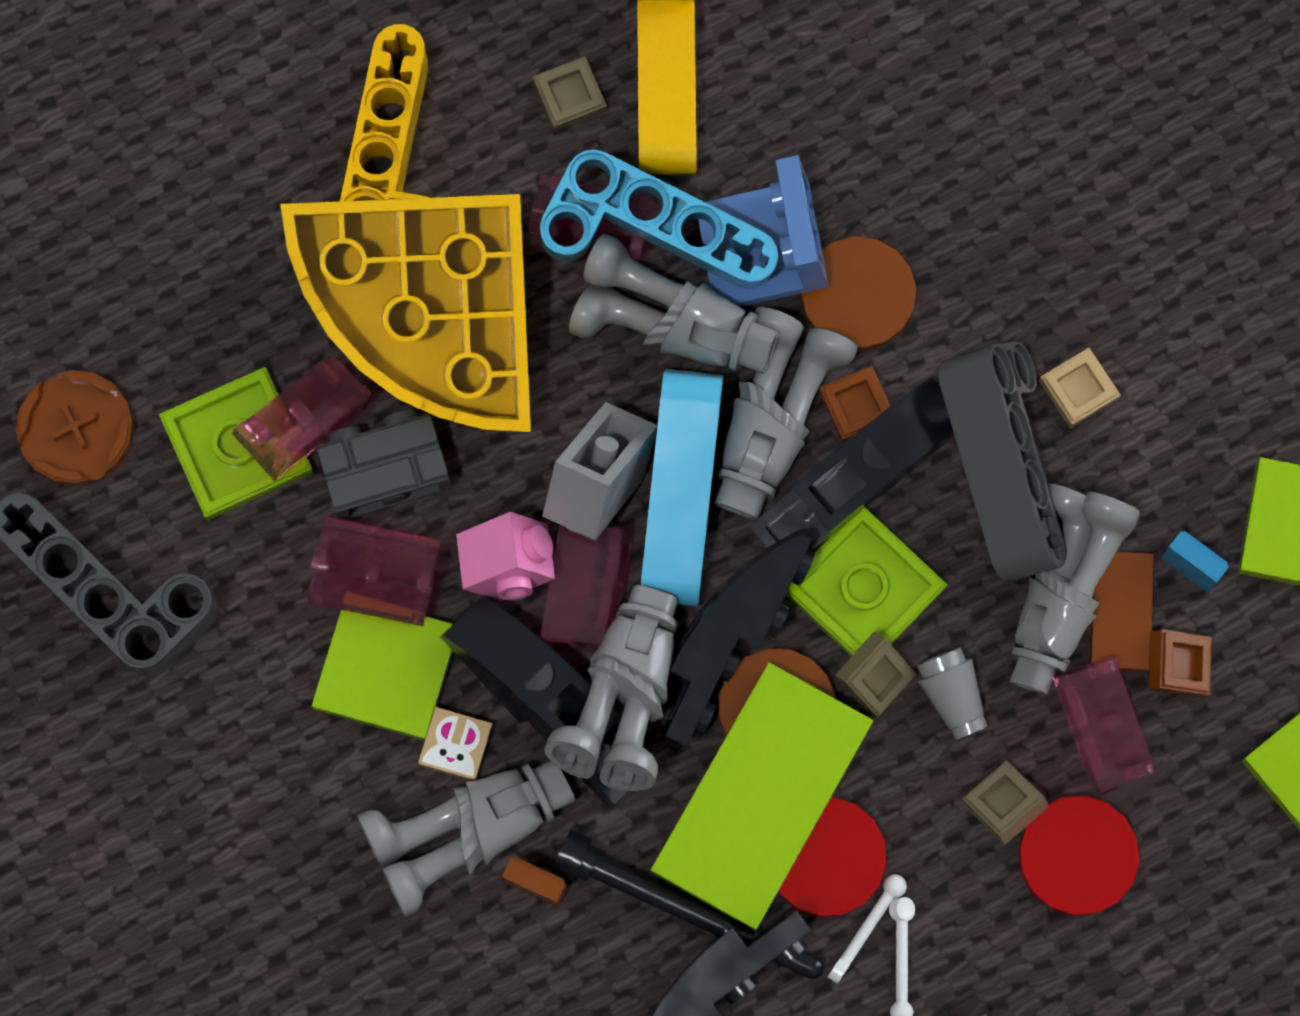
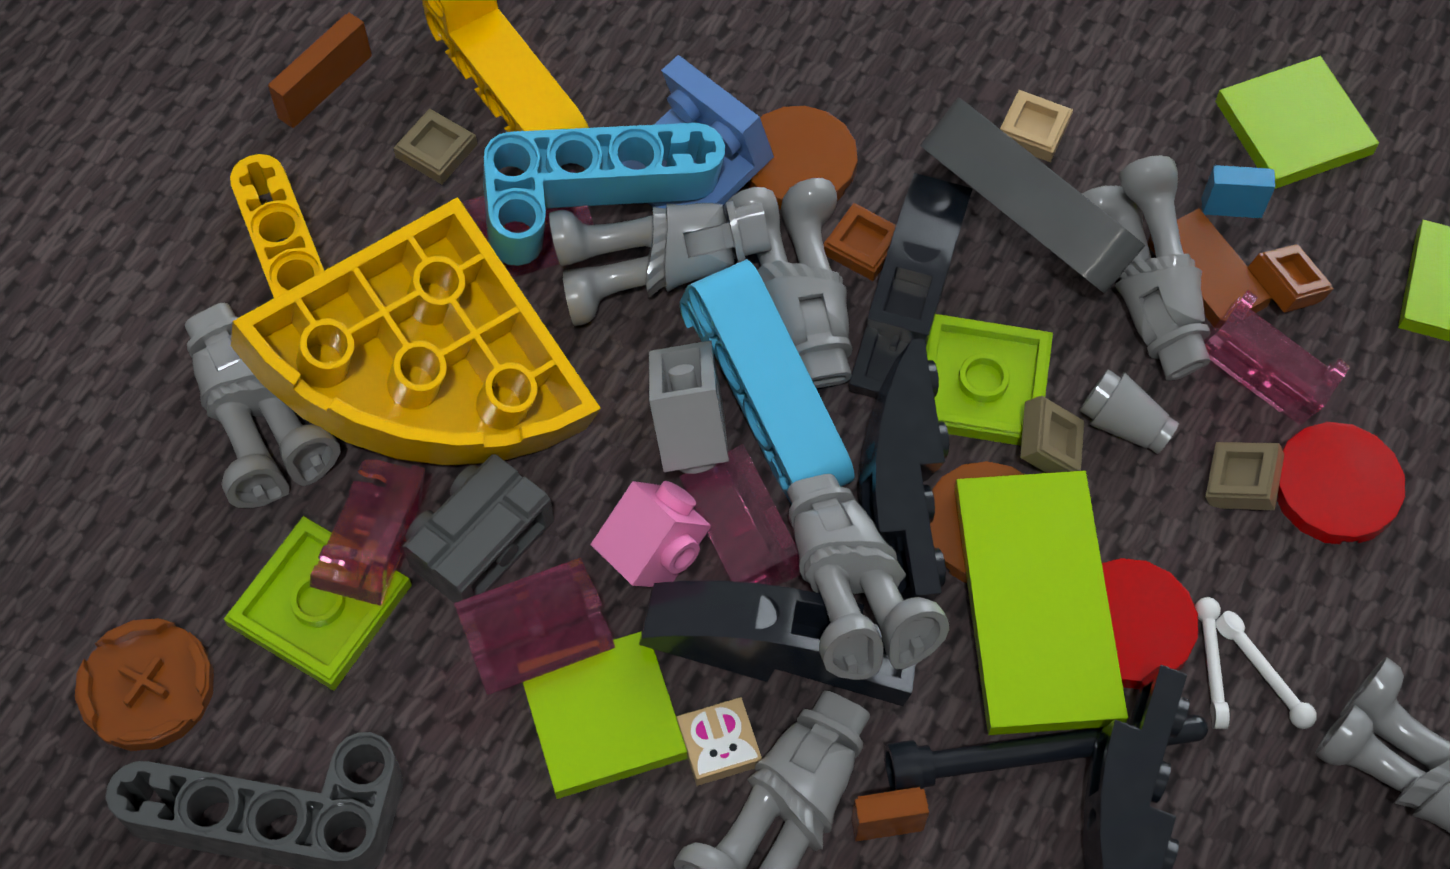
camera: 35 degrees left, 15 degrees down
(284, 180) = (235, 395): none -> light grey piece

